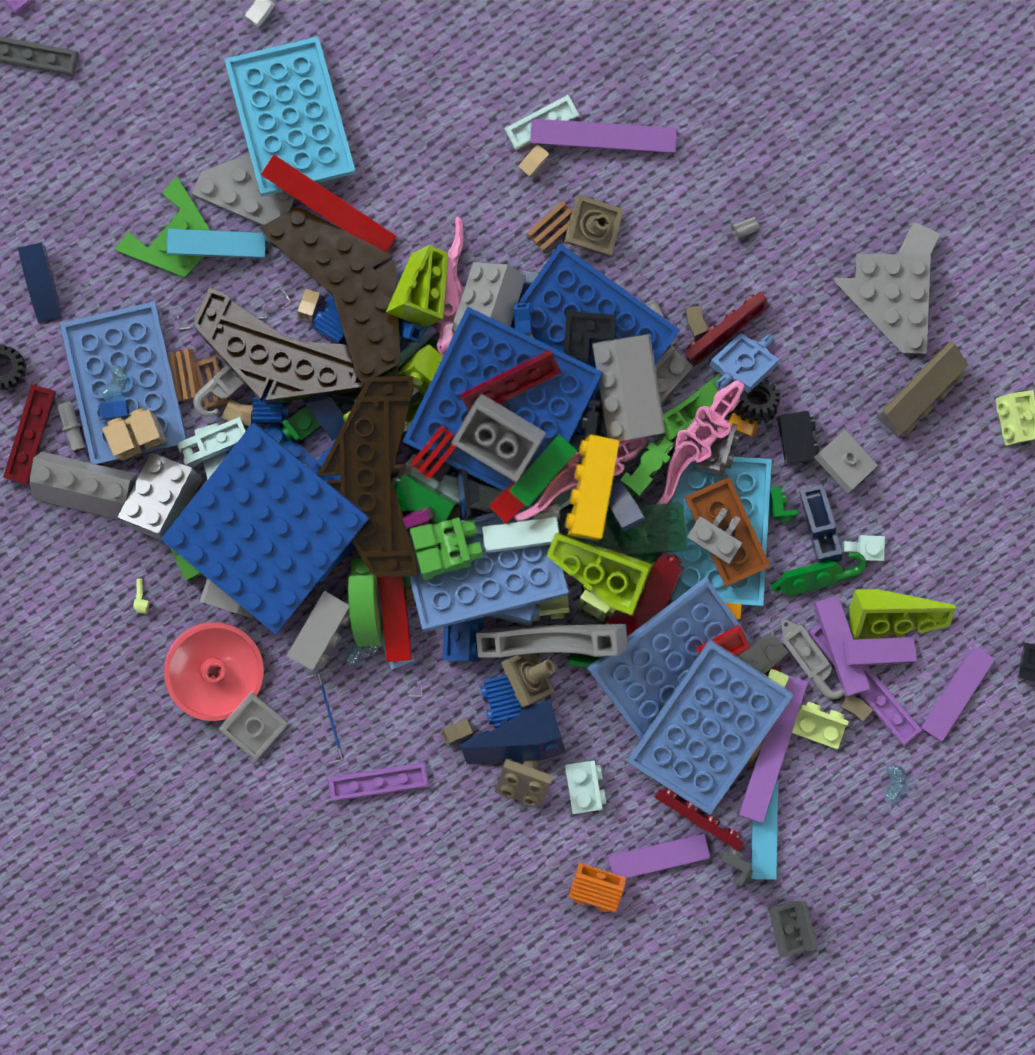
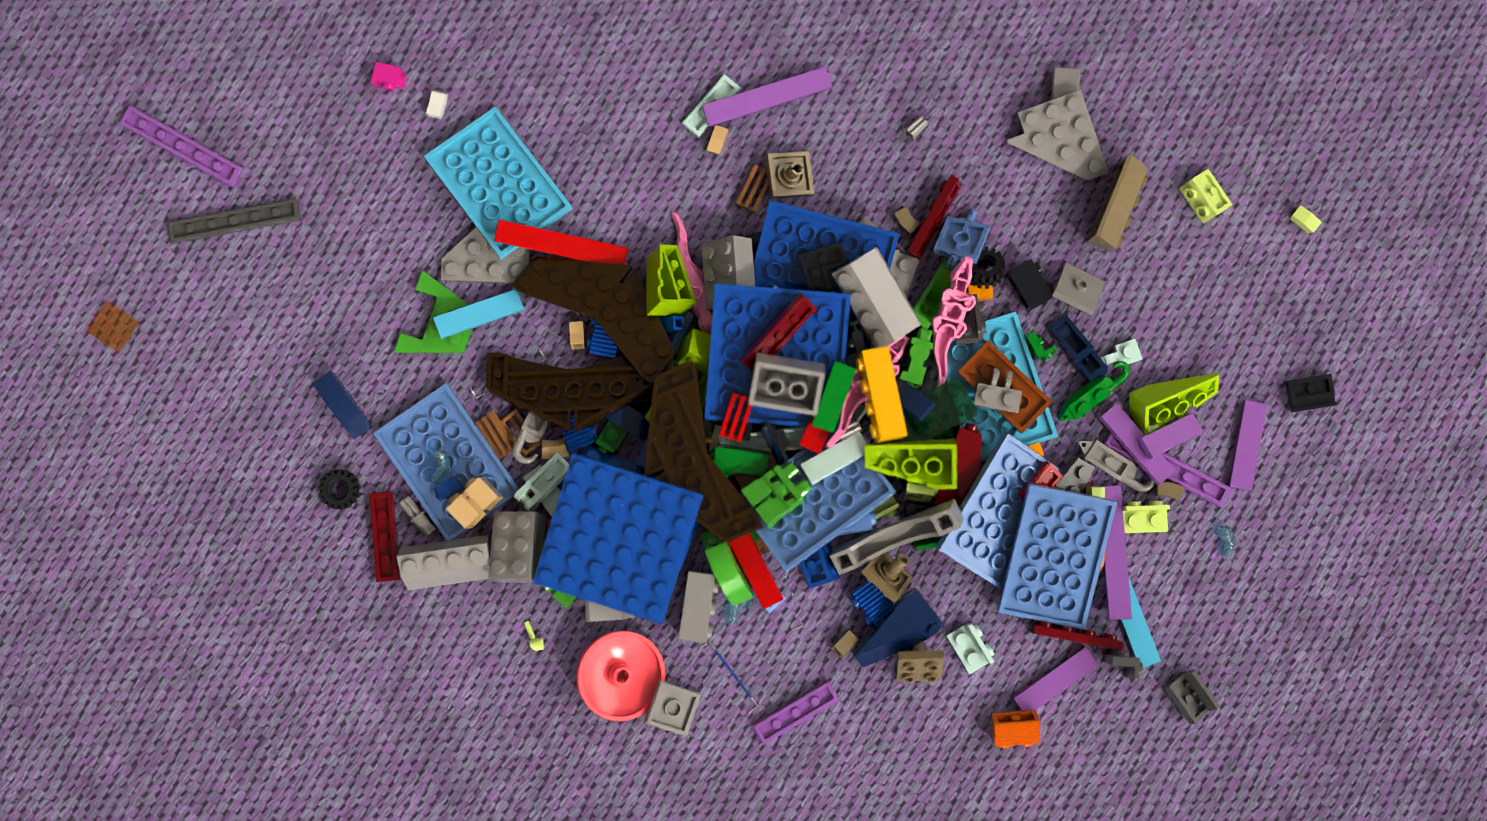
camera: 25 degrees left, 0 degrees up
(418, 518) = (743, 478): magenta plate -> none
(523, 317) = (763, 274): blue piece -> none

